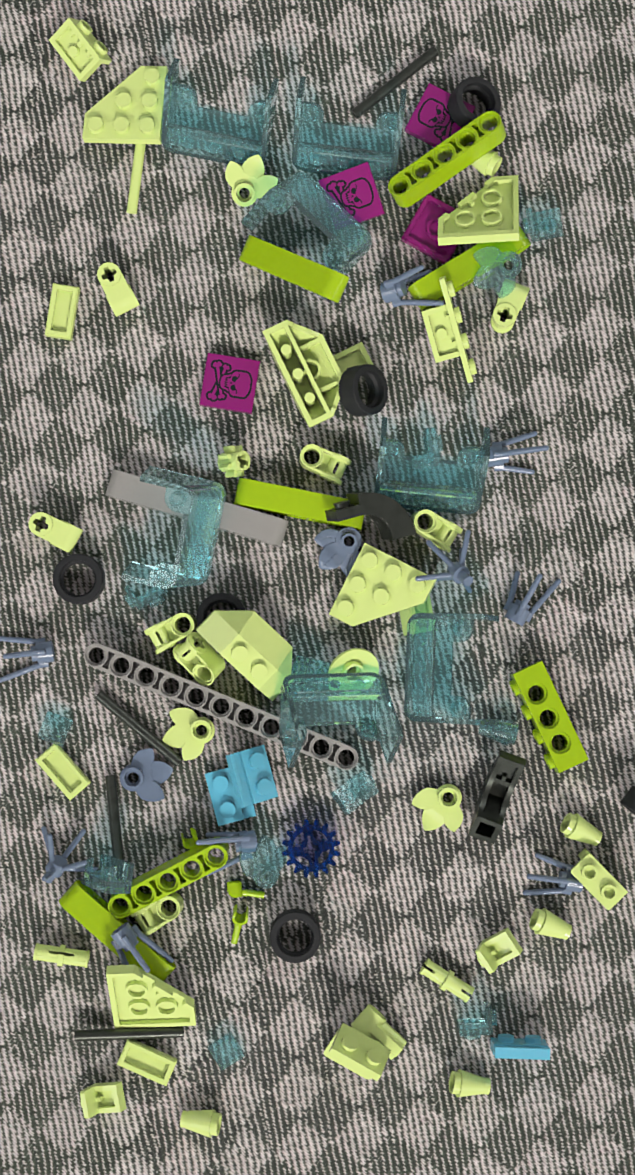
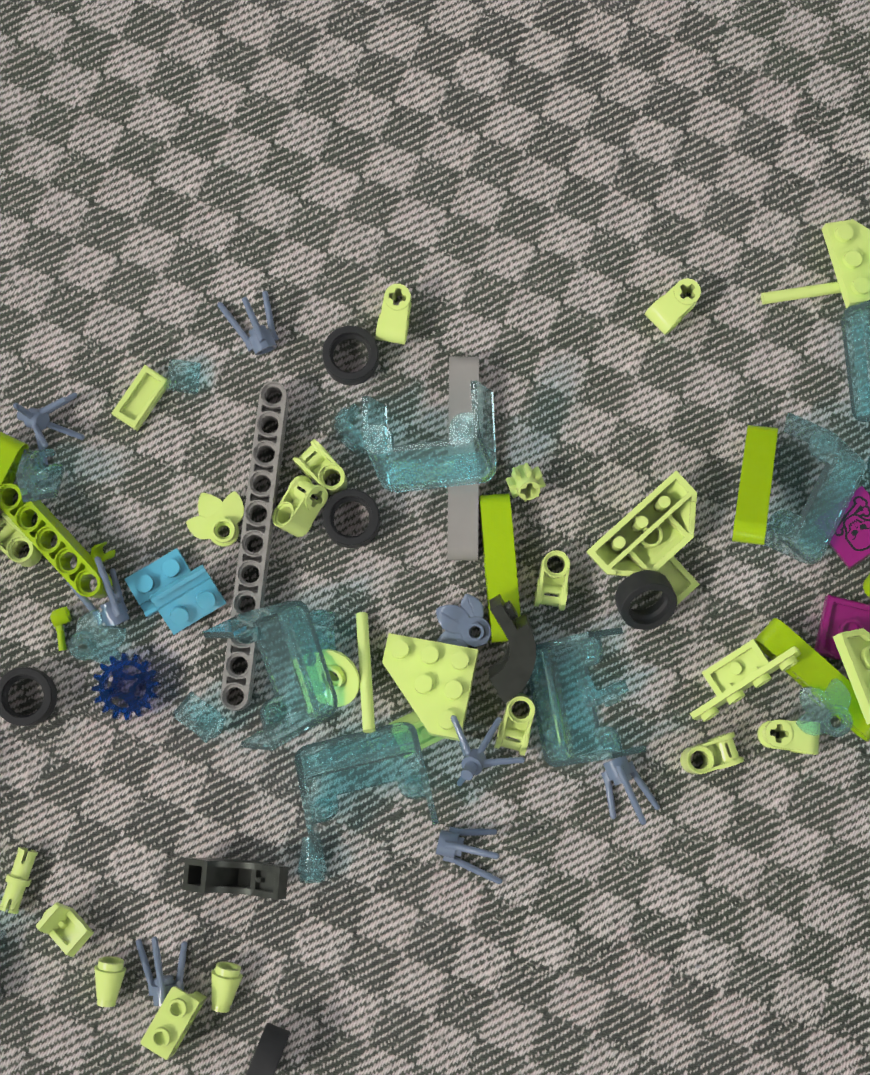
camera: 70 degrees right, 5 degrees down
(62, 311) = (632, 257): yellowish green tile -> none
(114, 816) = (105, 465): pearl dark grey piece -> none
(138, 728) = (207, 464): pearl dark grey bar -> none
(150, 775) = (161, 490): sand blue plate -> none
(229, 383) = (609, 455): magenta tile -> none
(238, 920) = (28, 630): lime hand -> none
(249, 176) = (841, 410): yellowish green plate -> none
(250, 647) = (325, 556): yellowish green wedge -> none
(356, 642) = (365, 672): none -> yellowish green bar
(394, 289) = (770, 604): sand blue plant -> none
(436, 810) = (204, 815): yellowish green plate -> none
(505, 370) = (716, 753): none -> yellowish green piece
(572, 751) = (310, 950): lime brick -> none

